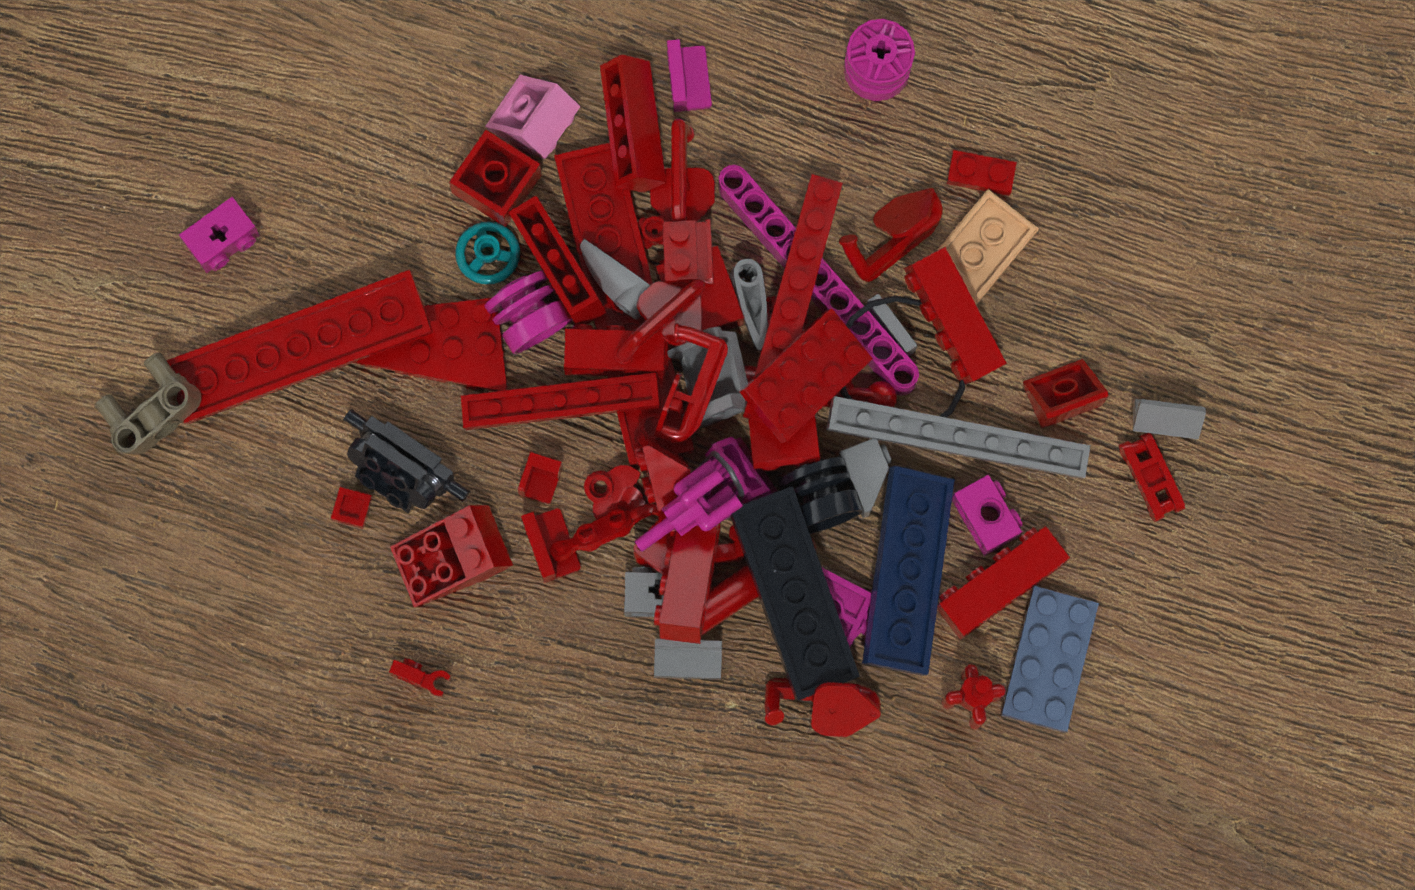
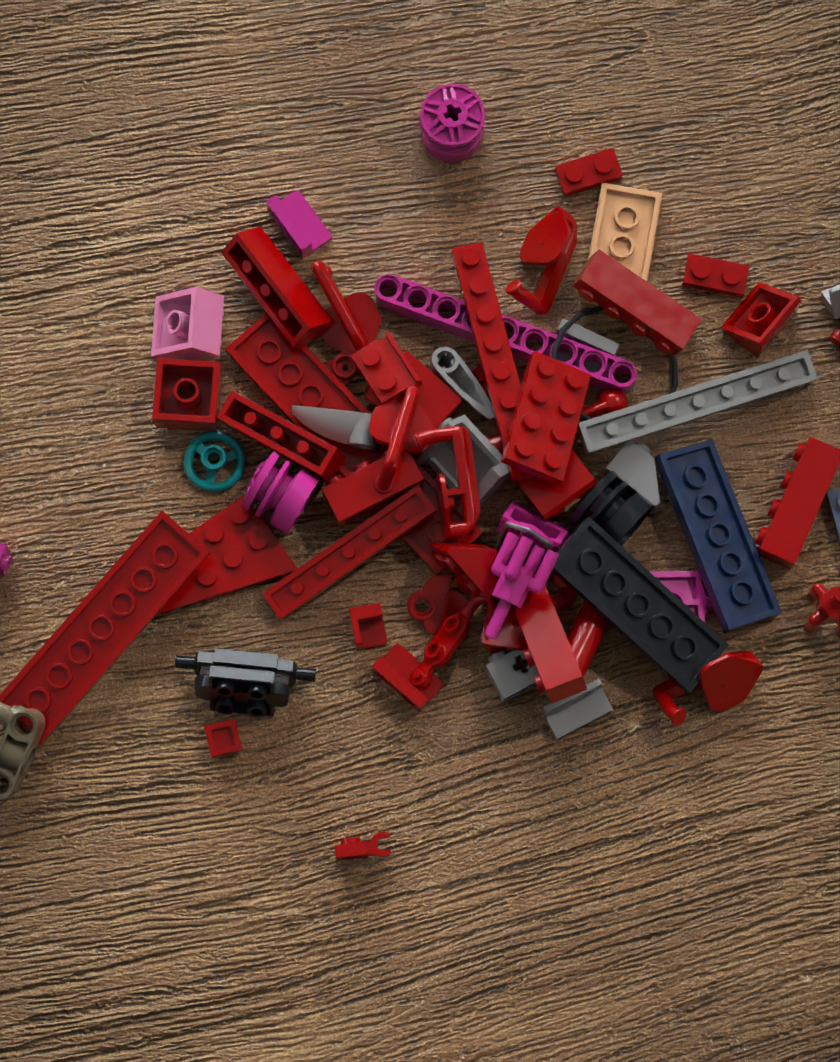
camera: 25 degrees left, 0 degrees up
(451, 554) = (330, 731): red slope -> none
(987, 534) = (762, 470): dark pink brick -> none
(1045, 331) = (715, 275): none -> red plate

